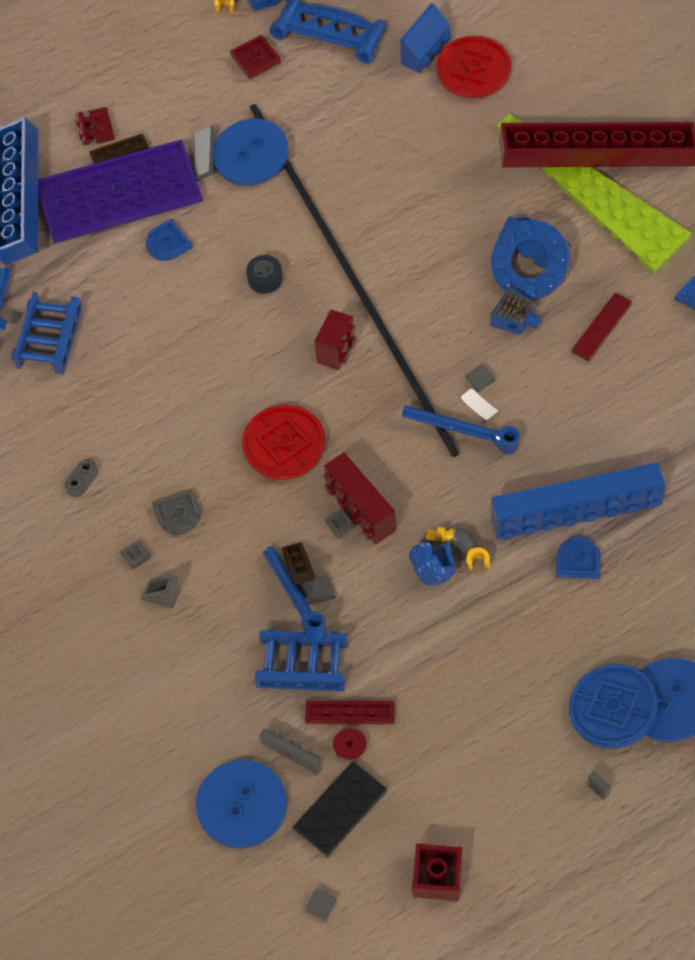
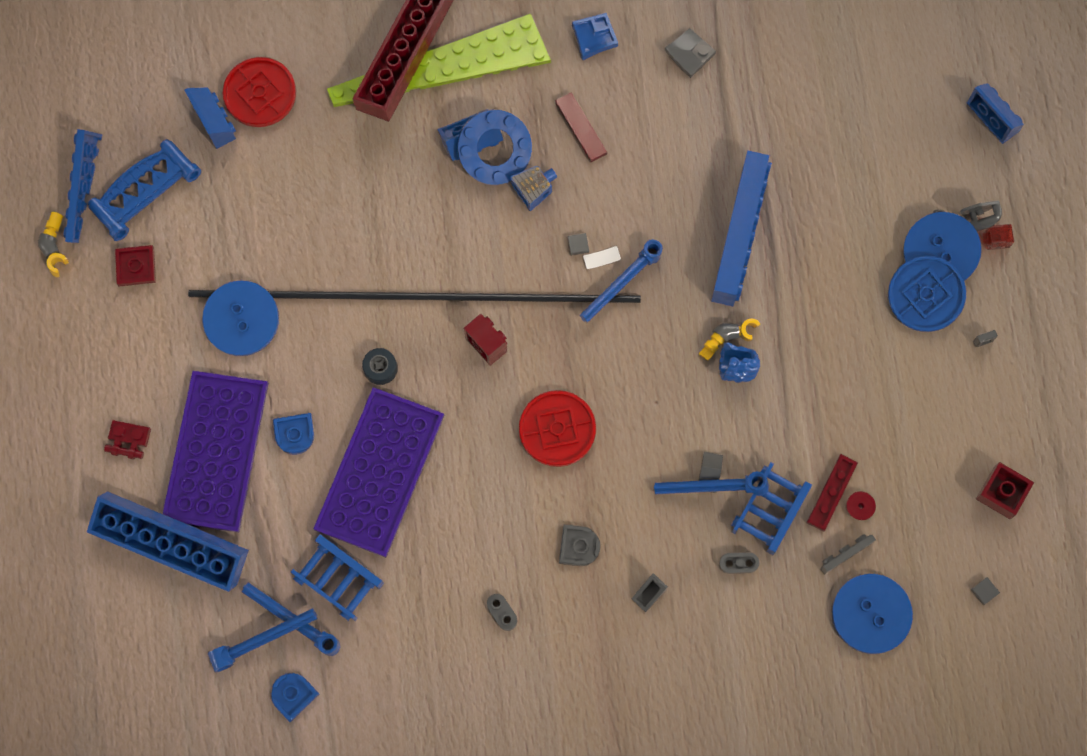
camera: 65 degrees left, 15 degrees up
(119, 148) = (168, 430): dark brown tile -> none
(135, 555) = (601, 599): dark grey tile -> none
(164, 320) = (379, 472): none -> dark purple plate
(204, 153) = (217, 358): tile -> none
(230, 658) = (738, 561): none -> dark grey plate
(298, 563) = (686, 469): dark brown tile -> none
(339, 523) = (657, 420): dark grey tile -> none
(340, 809) = (912, 539): black plate -> none
(359, 498) = (651, 392): dark red brick -> none
(578, 559) = (783, 254): blue tile -> none

